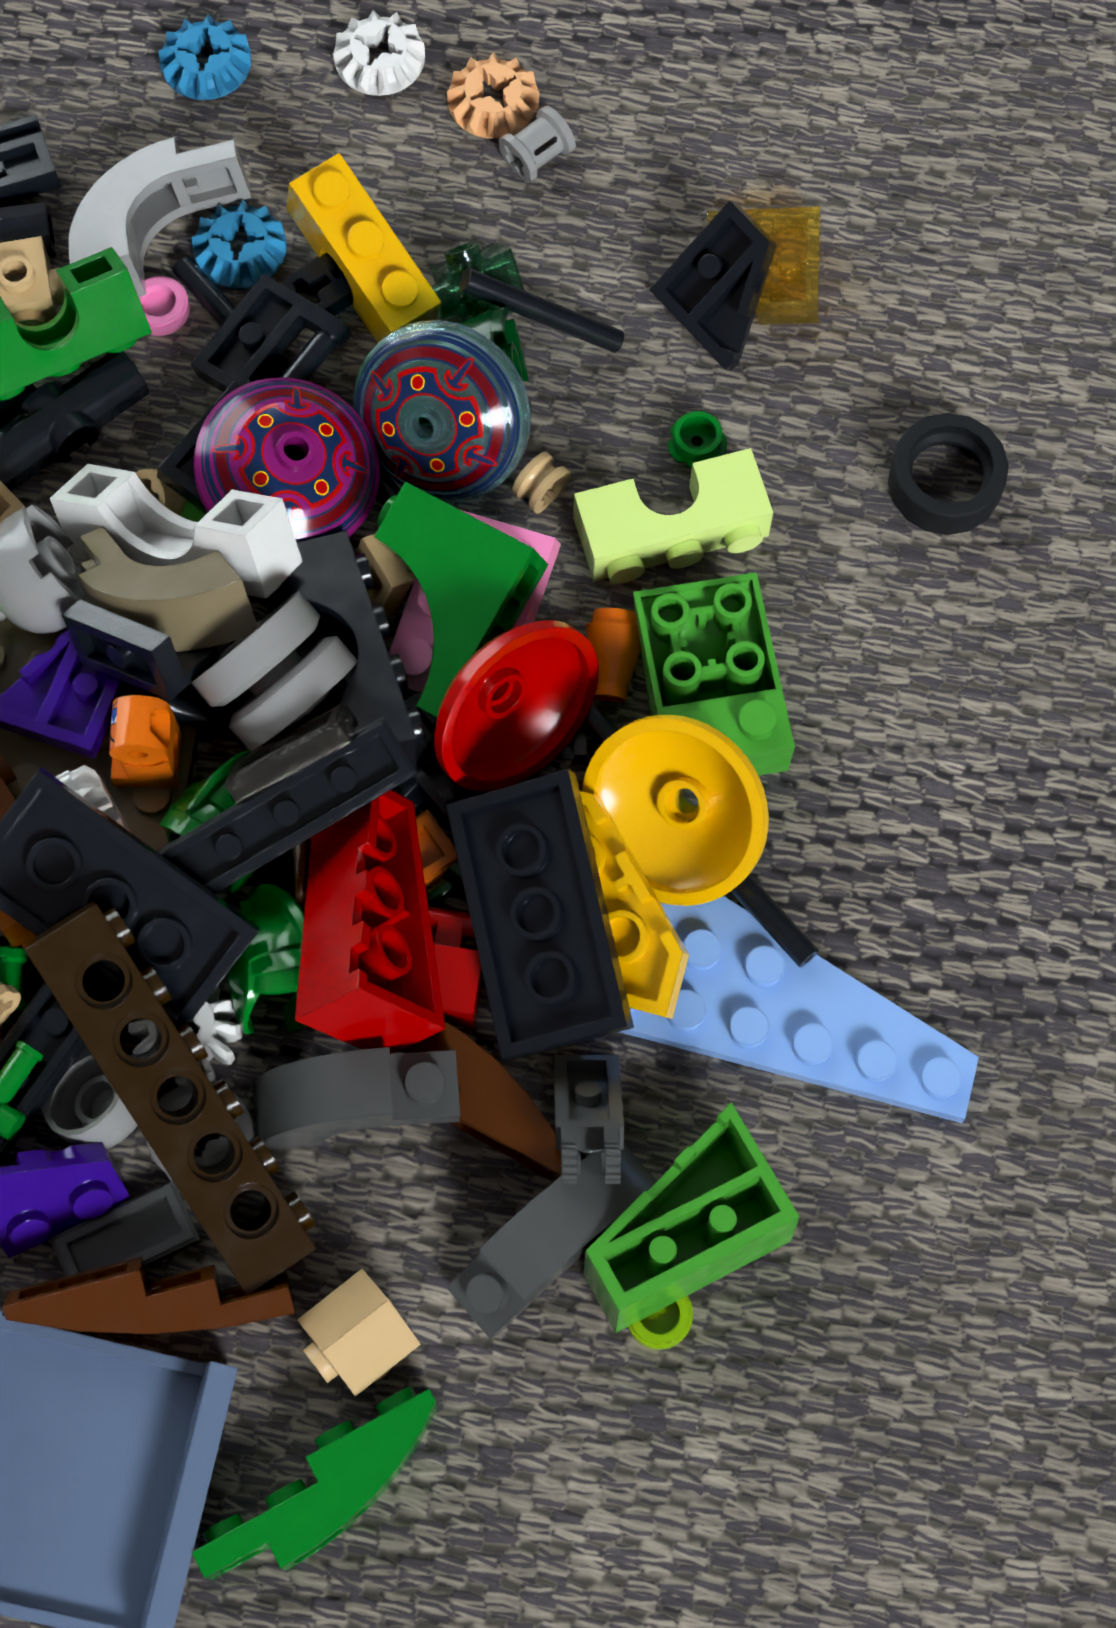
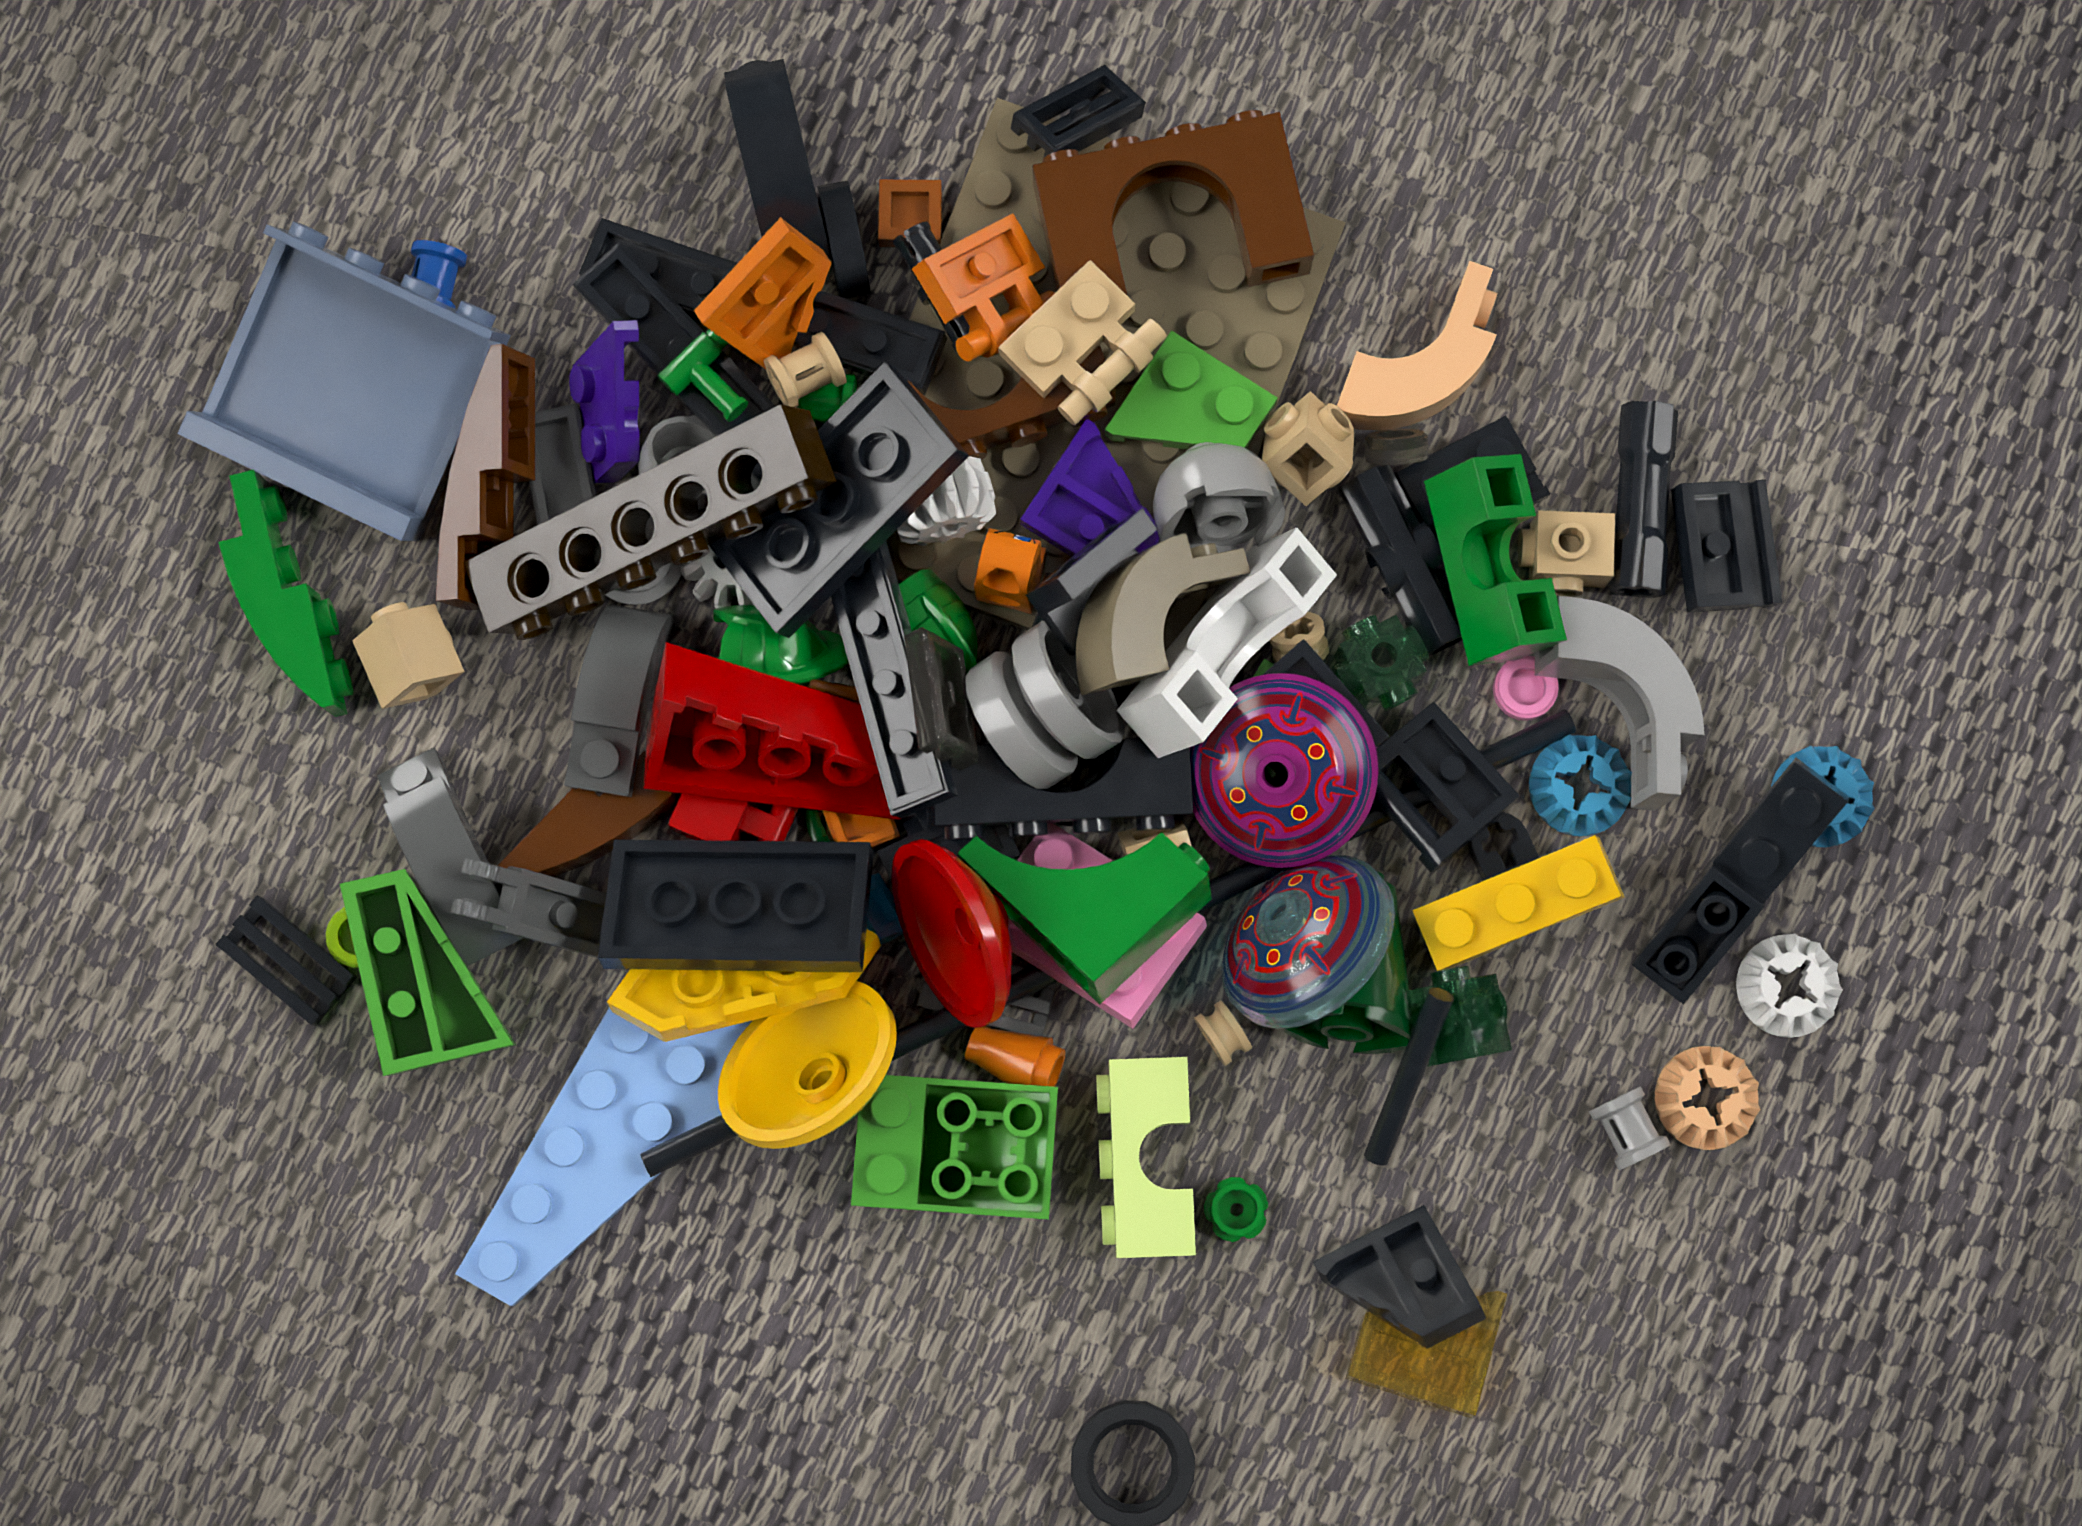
camera: 110 degrees right, 10 degrees up
(159, 413) = (1377, 684): none -> clear green brick
(292, 100) = (1739, 880): none -> black slope
(727, 1328) = (246, 927): none -> black tile

